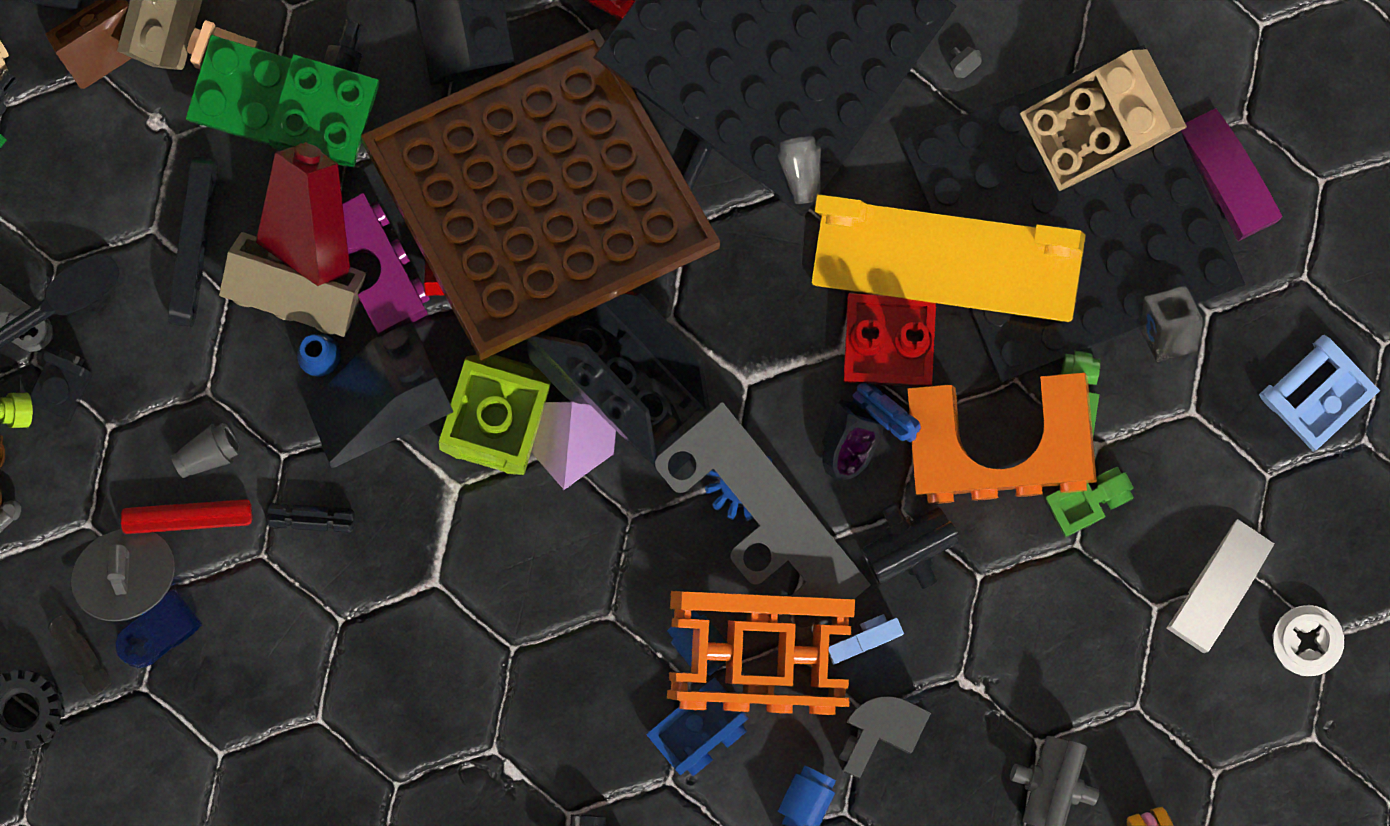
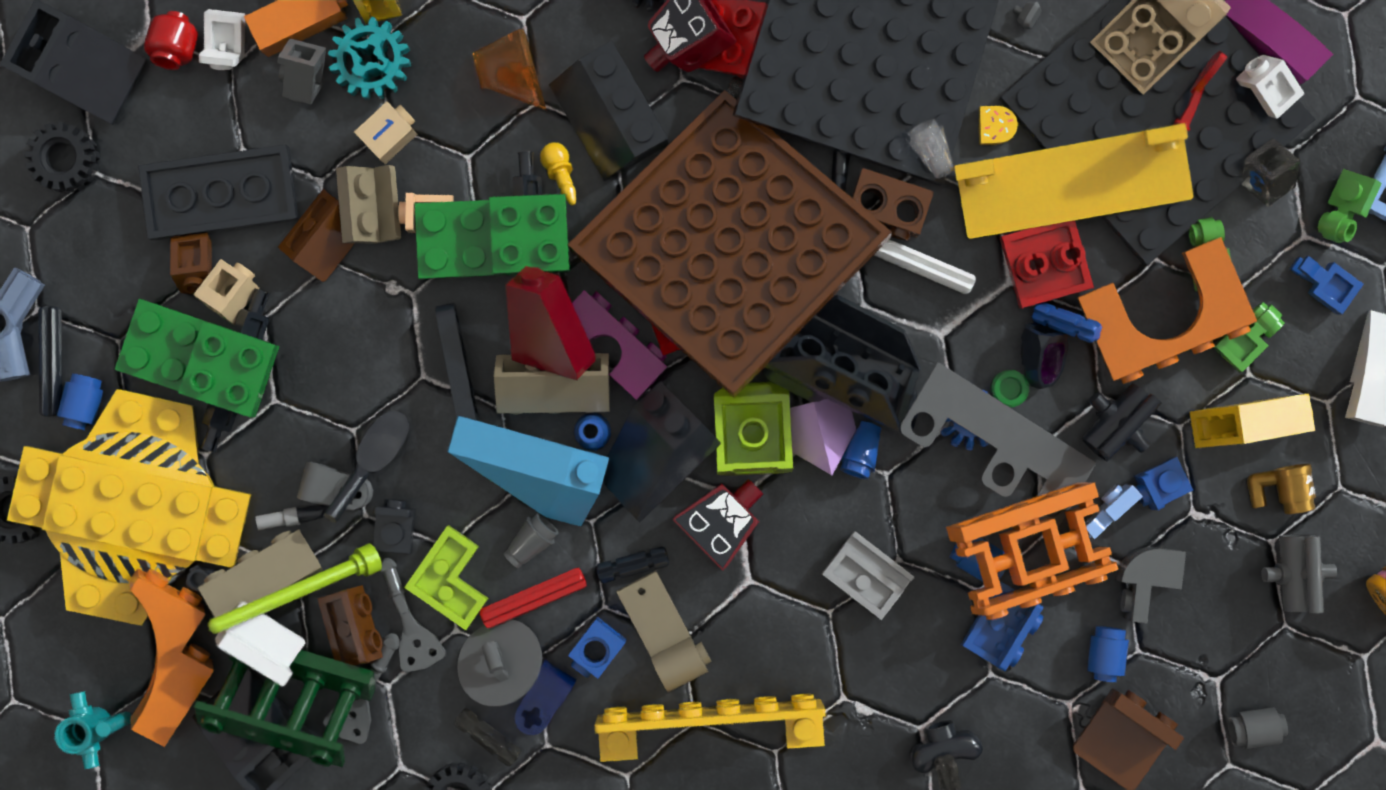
camera: 25 degrees left, 5 degrees up
(39, 503) = (411, 628): none -> dark grey piece
(88, 462) = (439, 582): none -> lime plate
(229, 698) = (801, 715): none -> yellow bracket
(242, 377) = (543, 474): none -> dark azure wedge
(256, 595) = (608, 637): none -> blue brick
(317, 604) = (663, 632): none -> dark tan door
(385, 42) = (555, 159): none -> yellow bar
(425, 501) = (721, 521): none -> torso
(568, 619) = (867, 575): none -> light grey plate
(609, 480) = (862, 451): none -> blue cone
(743, 207) = (891, 194): none -> reddish brown brick
(752, 297) = (926, 266): none -> white axle
(801, 466) = (1010, 388): none -> green tile
(887, 170) = (996, 125): none -> yellow tile
(935, 632) = (1162, 484): none -> blue bracket
(1059, 594) = (1252, 421): none -> yellow slope
(1081, 683) = (1293, 486): none -> pearl gold piece
(1118, 204) = (1198, 87): none -> red piece
(1201, 475) = (1331, 286): none -> blue plate
(1203, 227) = (1271, 84): none -> white bracket
(1256, 385) = (1351, 196): none -> bright green plate

